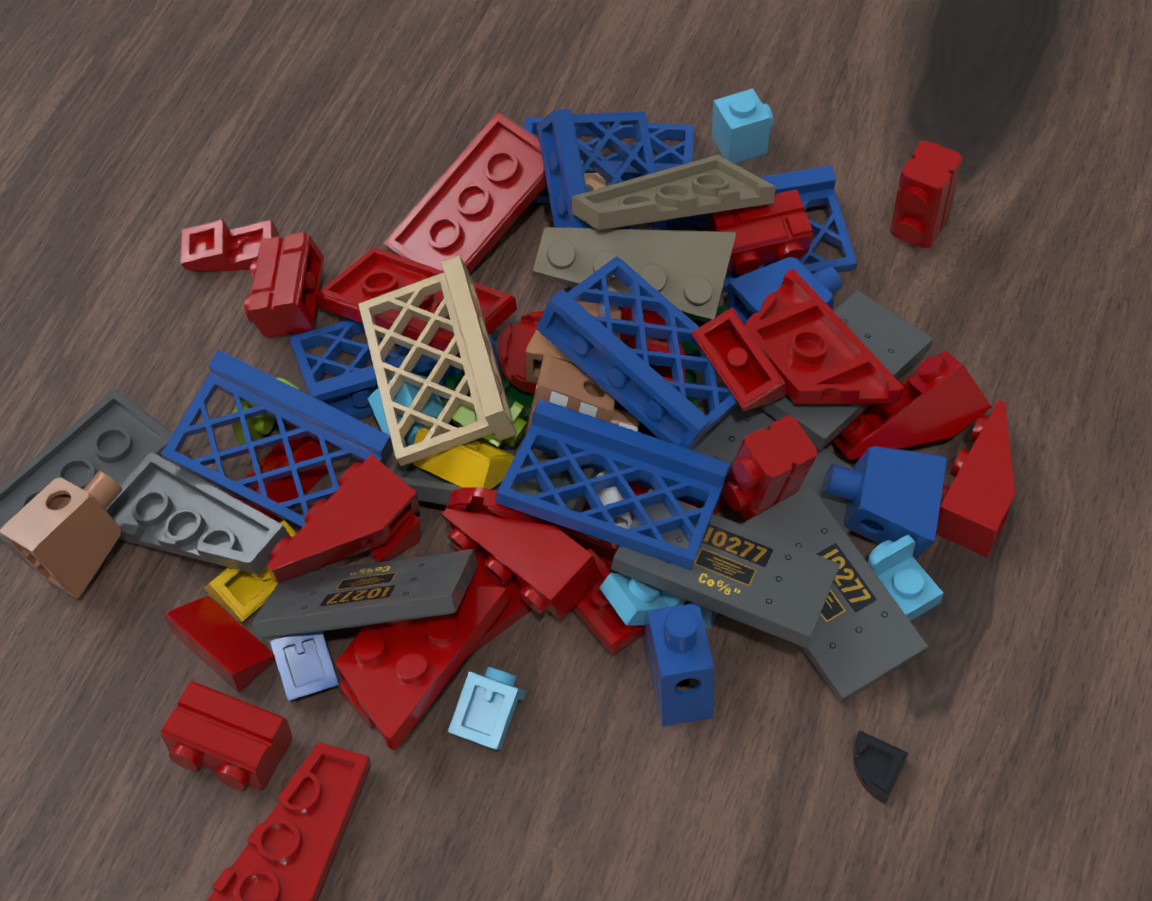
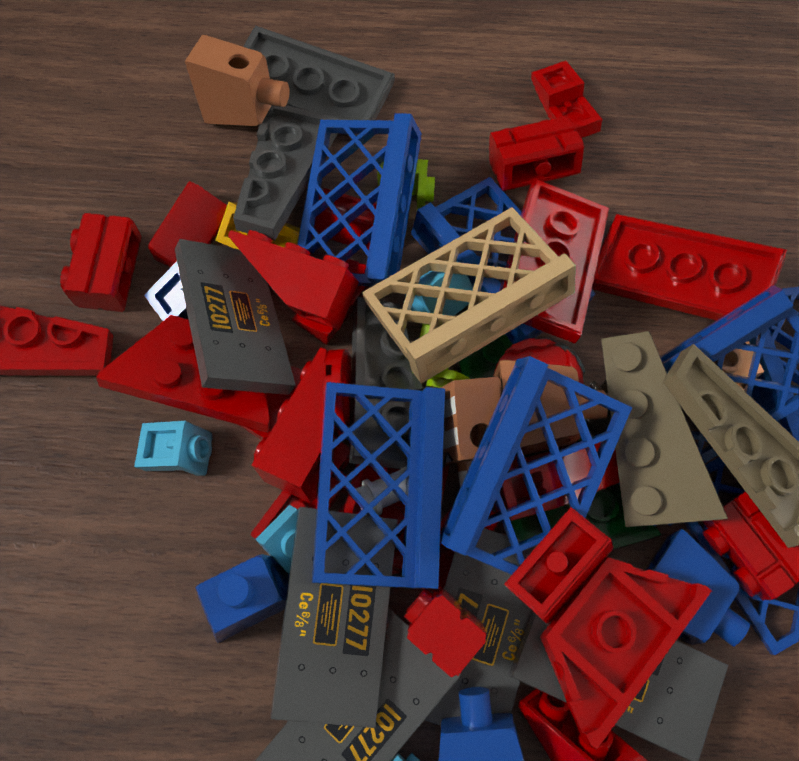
camera: 70 degrees right, 15 degrees up
(467, 464) = (383, 361): yellow slope -> none

